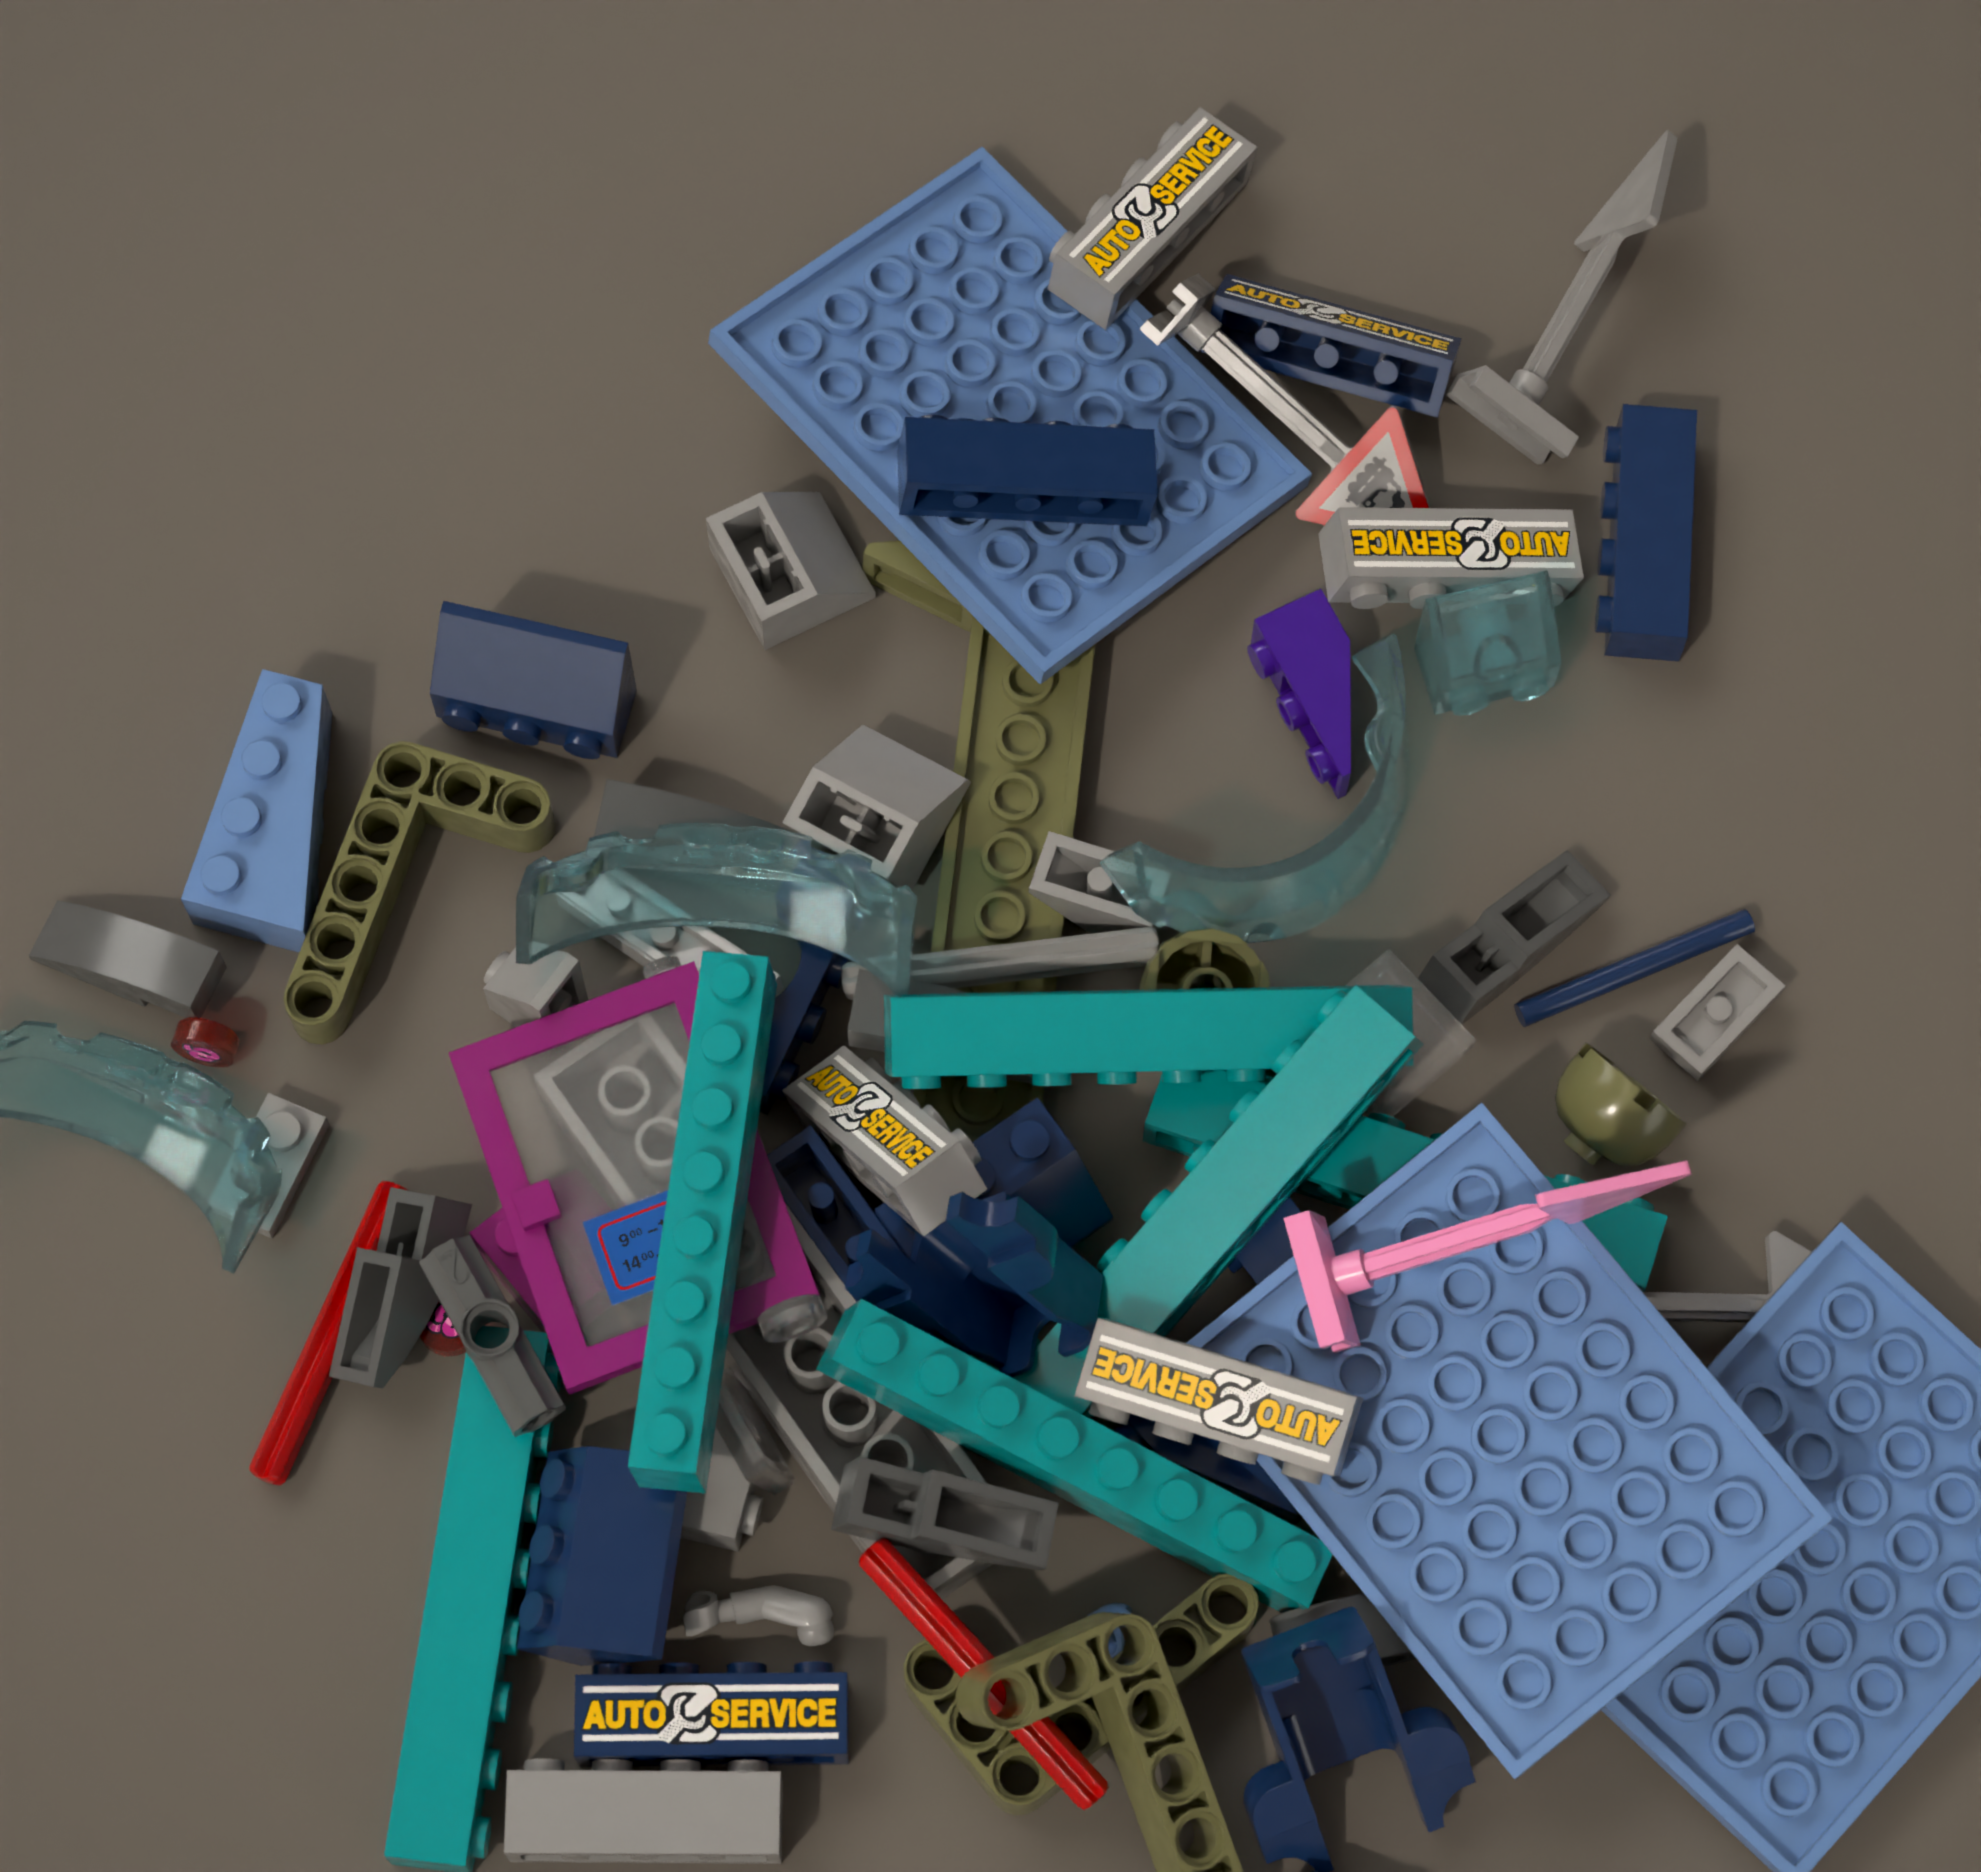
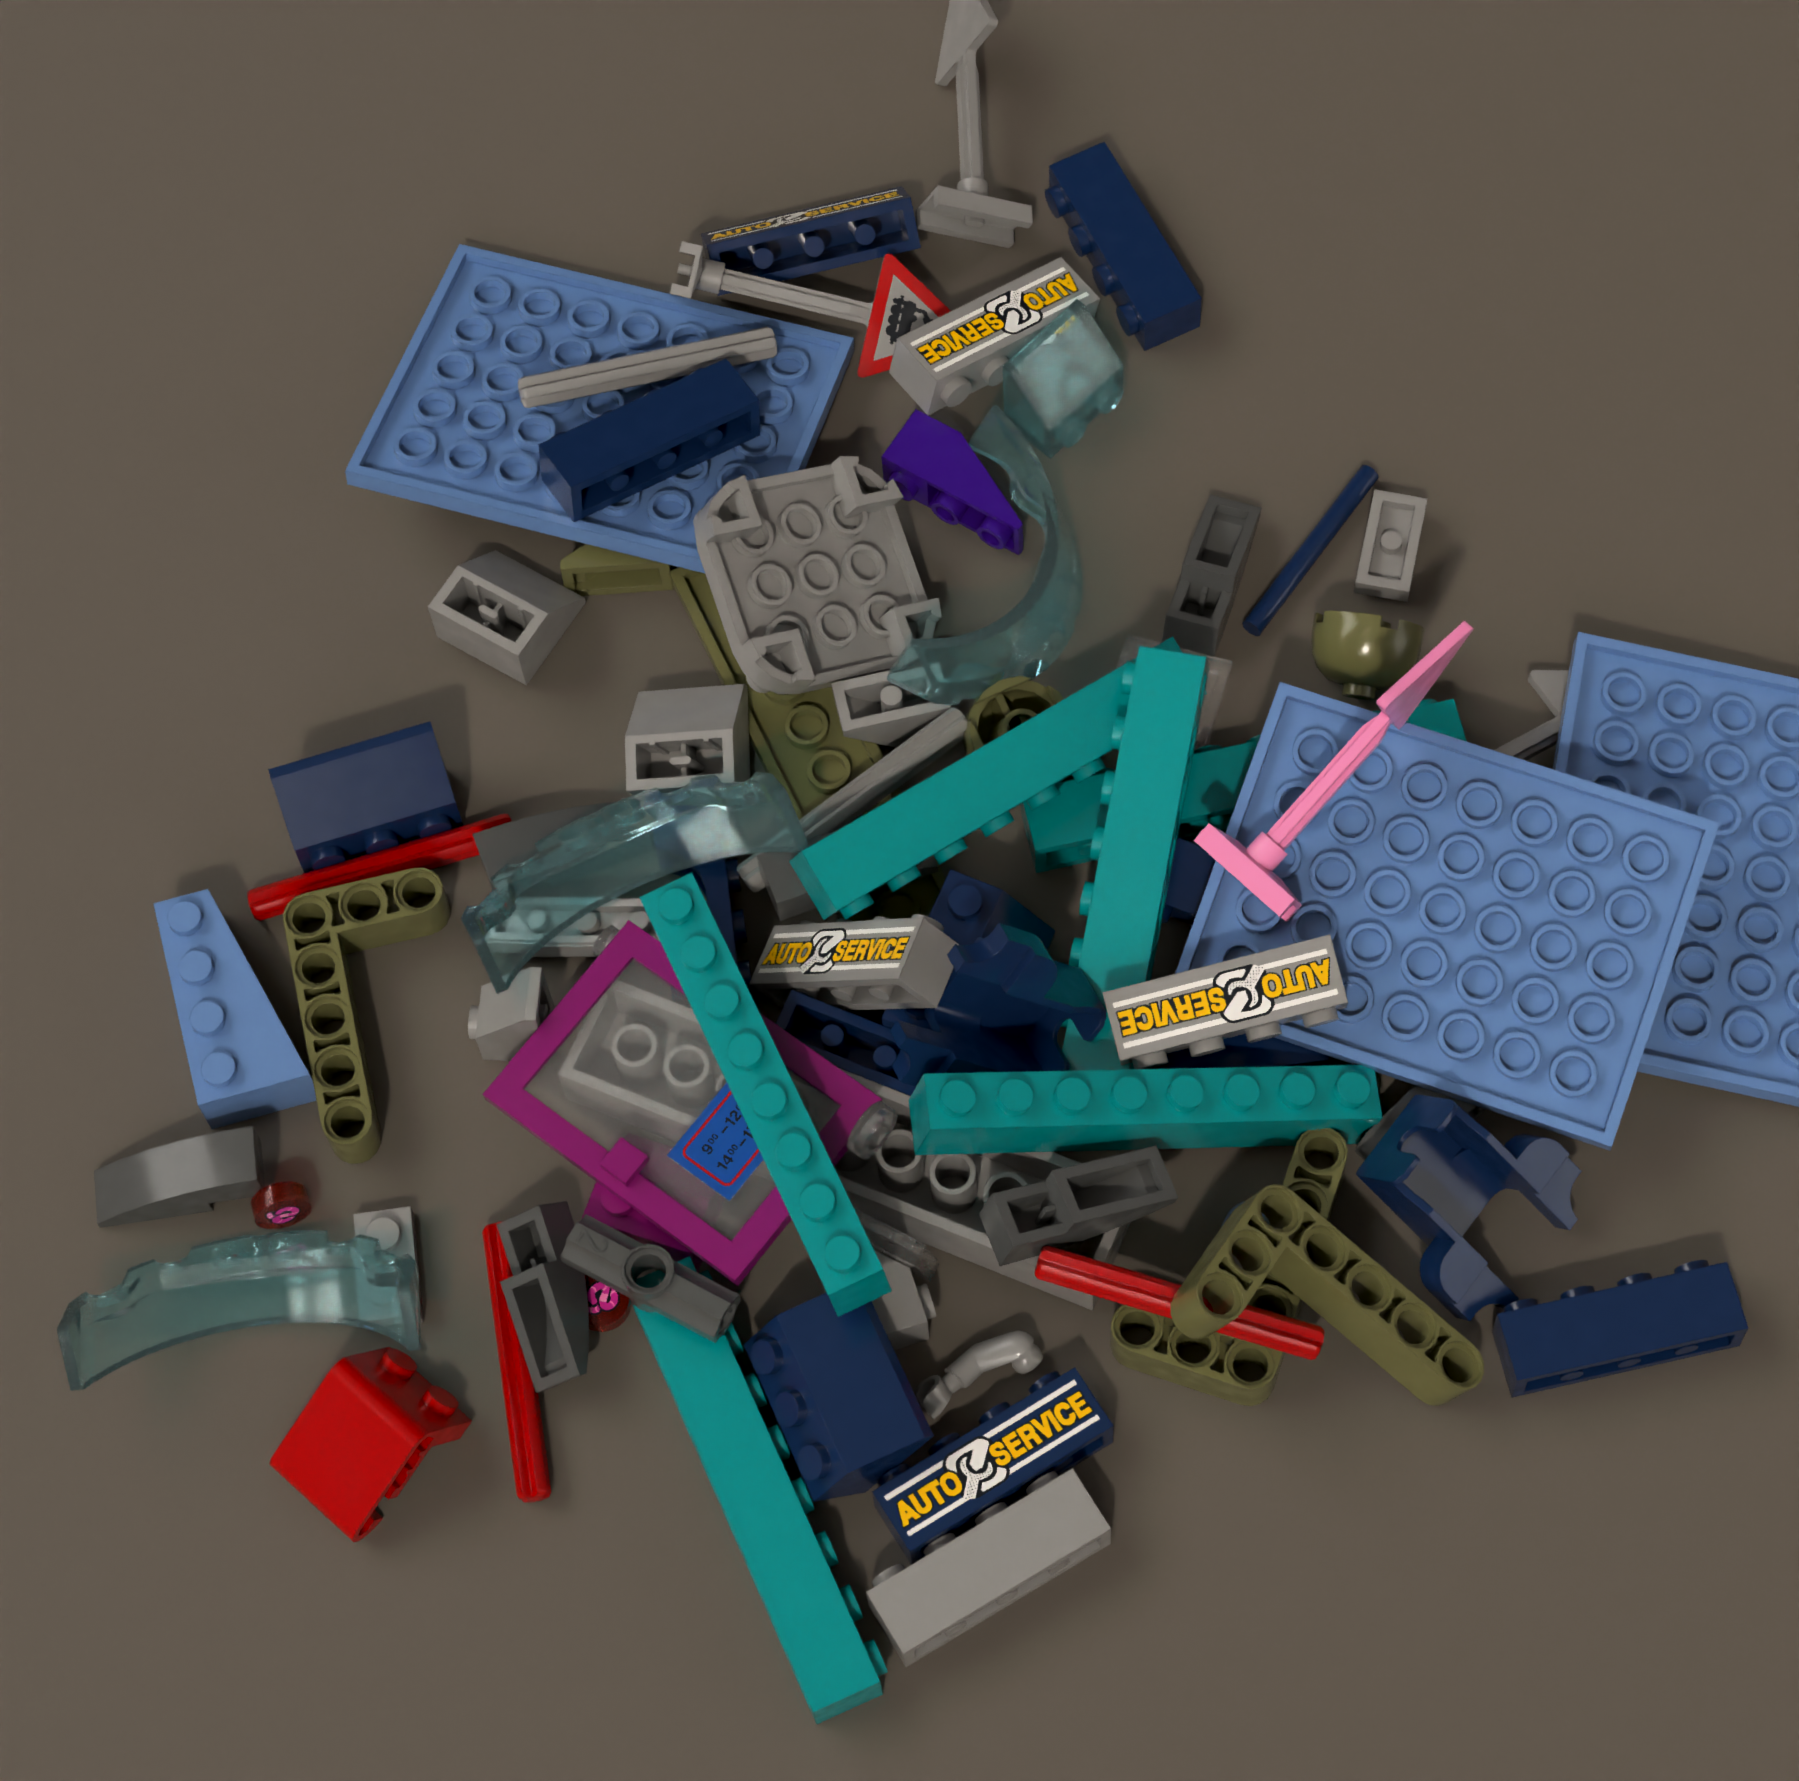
camera: 25 degrees left, 5 degrees down
(145, 1322) = (365, 1436): none -> red piece
(503, 752) = (425, 852): none -> red axle
(1079, 390) = (645, 367): none -> light grey axle
(1101, 710) = (812, 576): none -> light grey plate
(1150, 217) = (619, 223): light grey brick -> none

